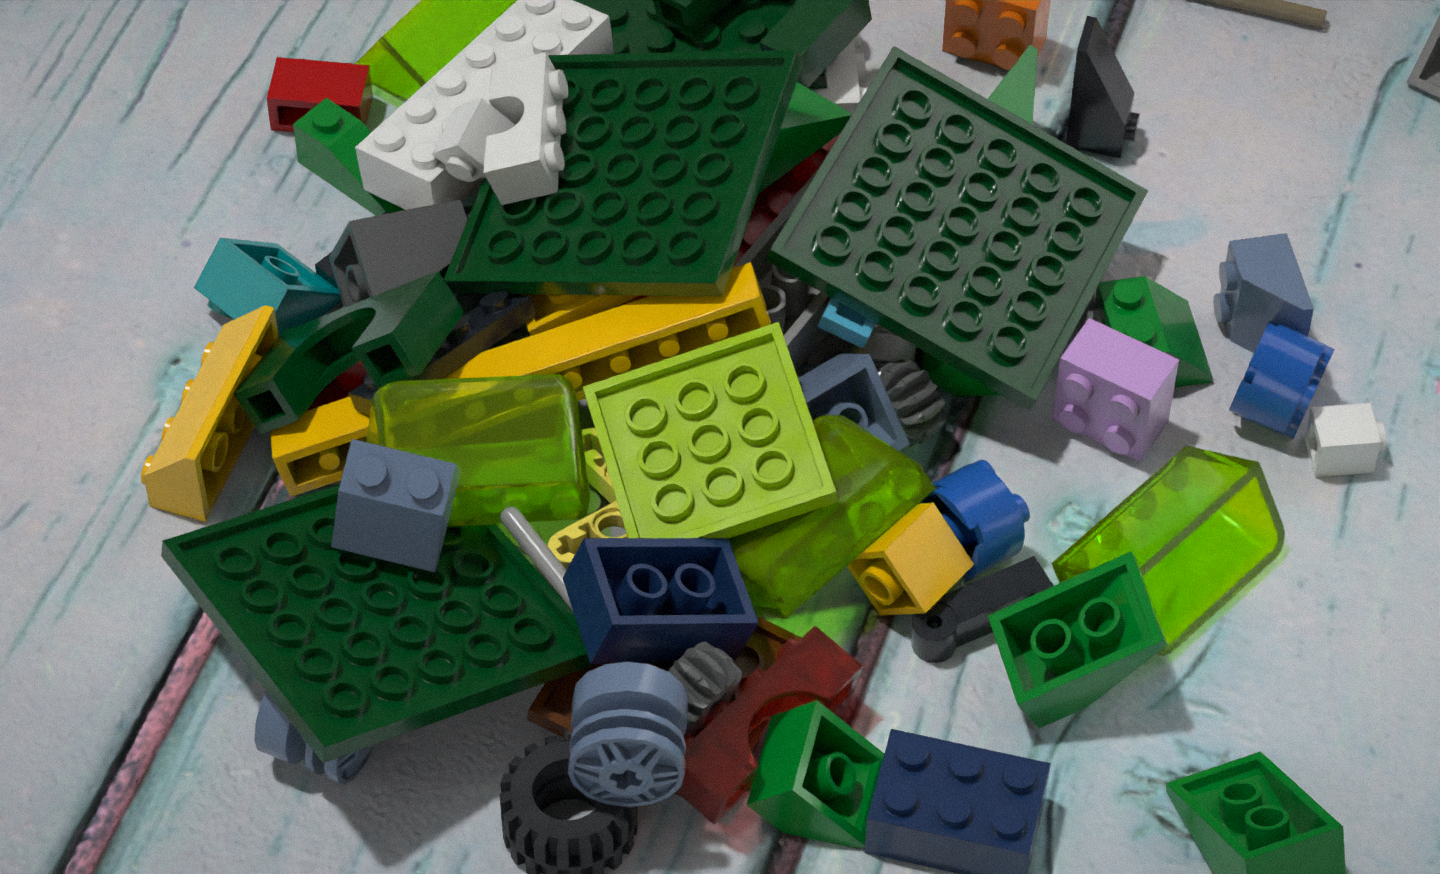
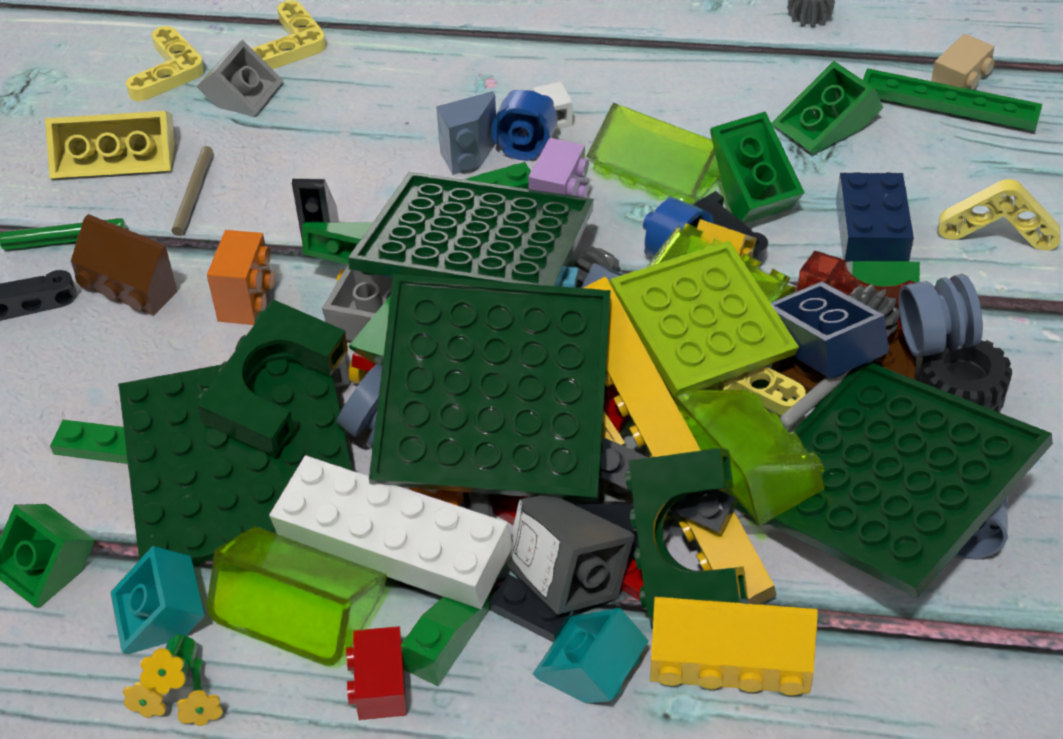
camera: 100 degrees left, 5 degrees down
(394, 505) = (825, 448): sand blue slope -> none
(464, 138) = (472, 491): white brick -> none
(529, 155) = (493, 437): white arch -> none

